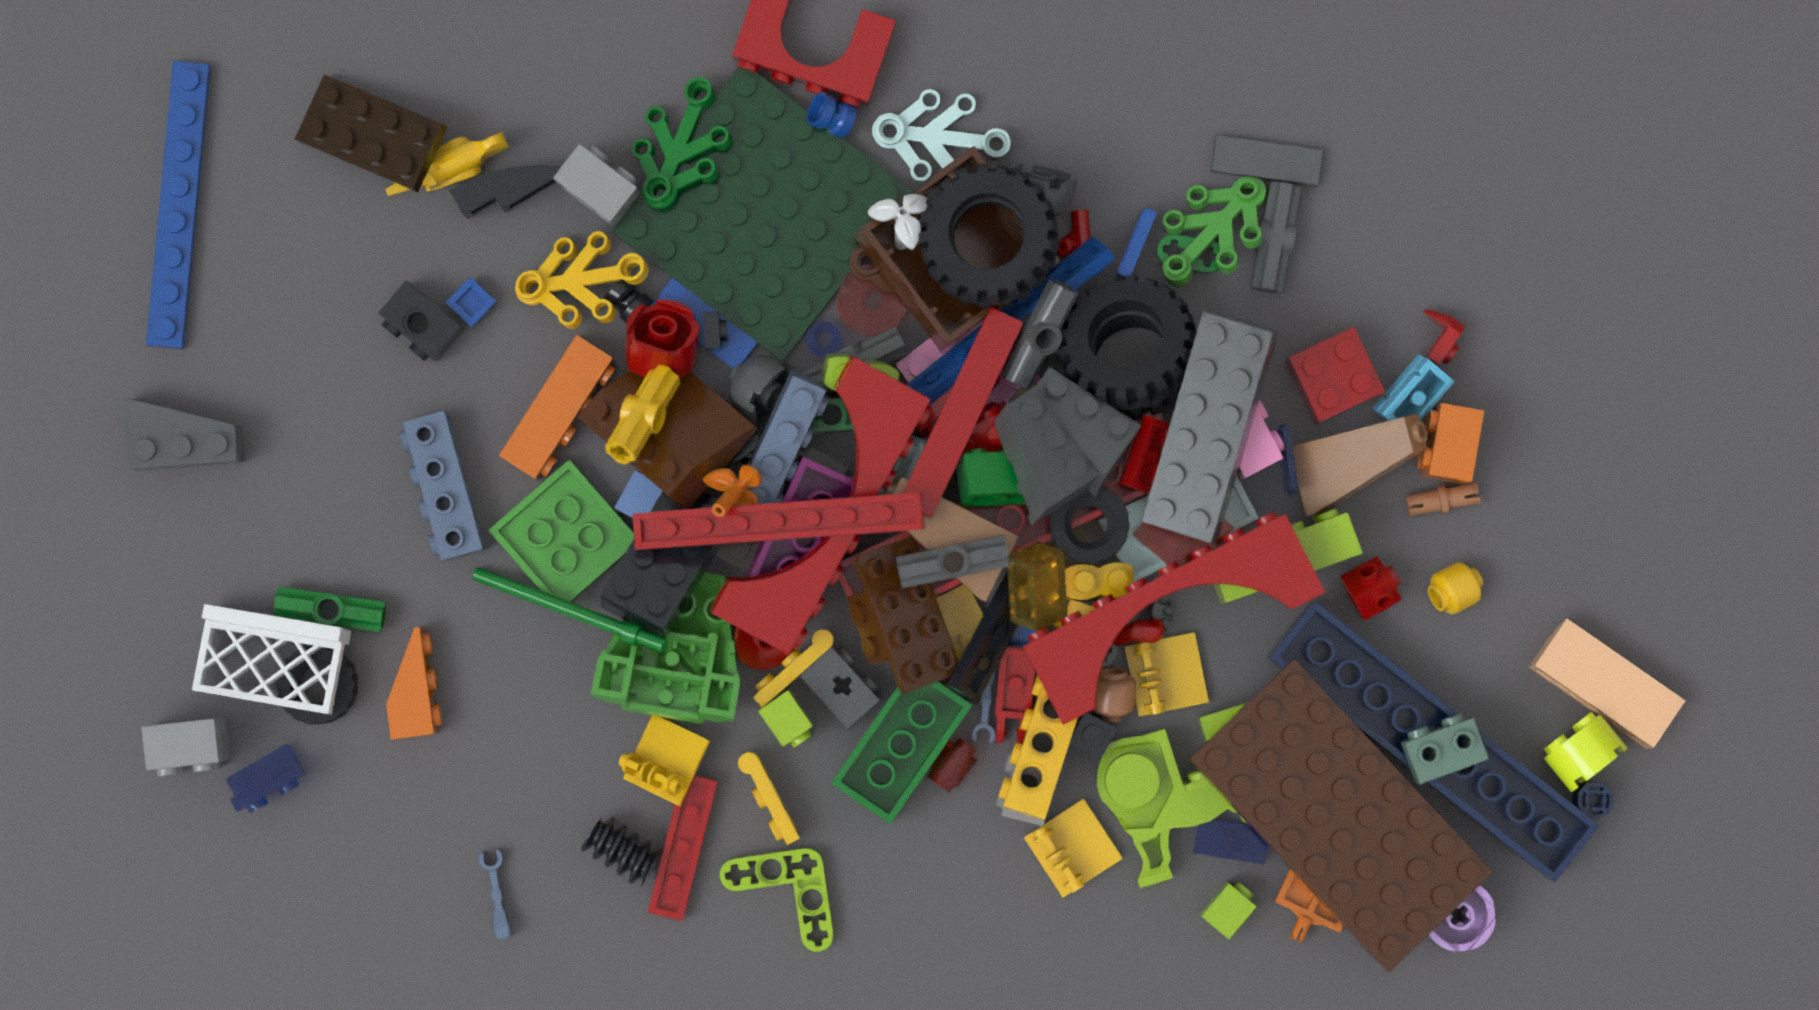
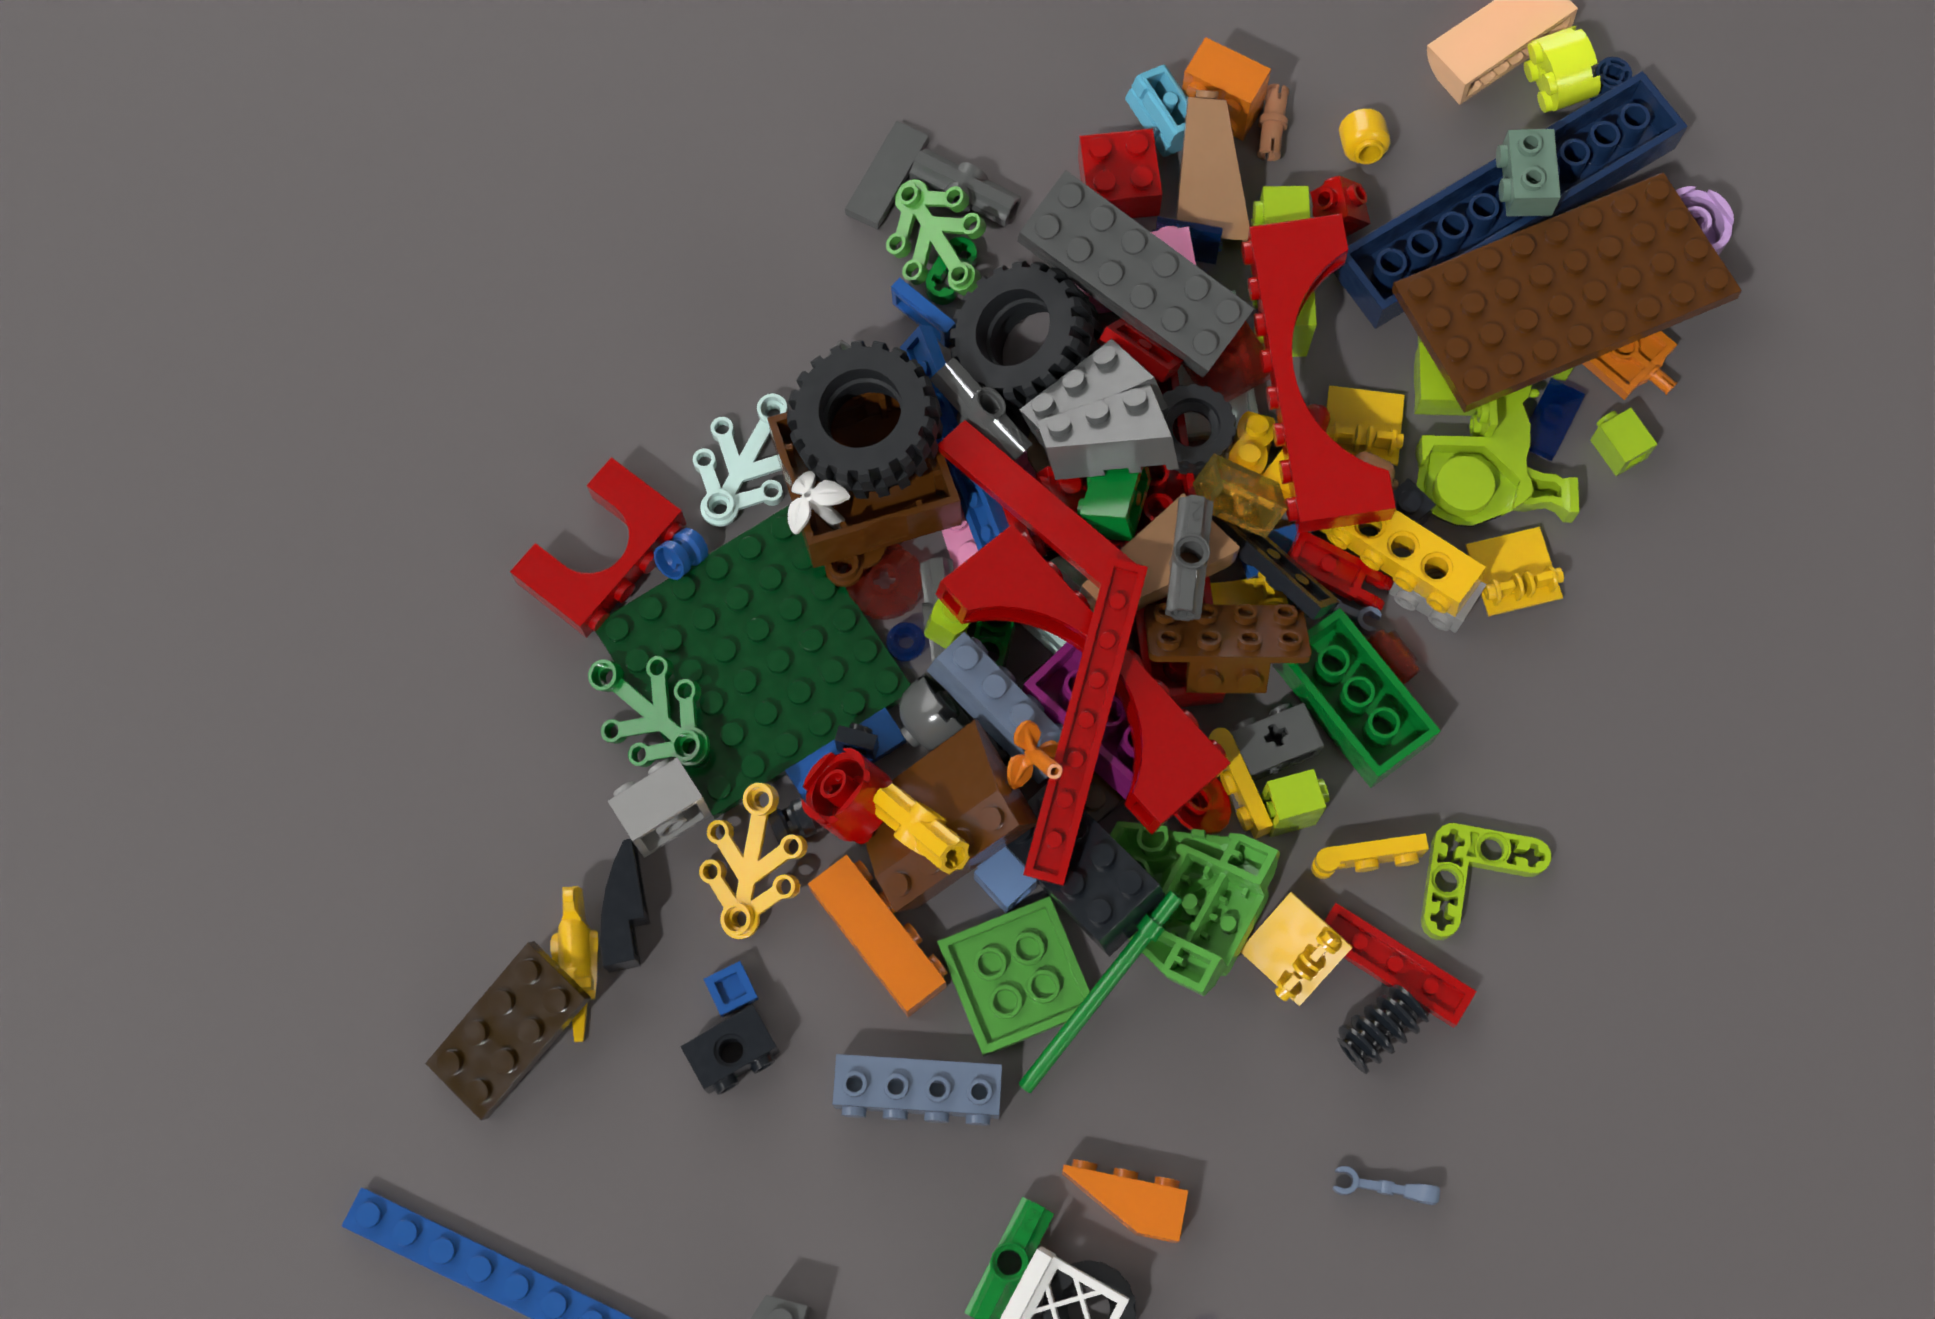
camera: 70 degrees left, 15 degrees down
(1444, 346) = (1116, 67): red plate -> none

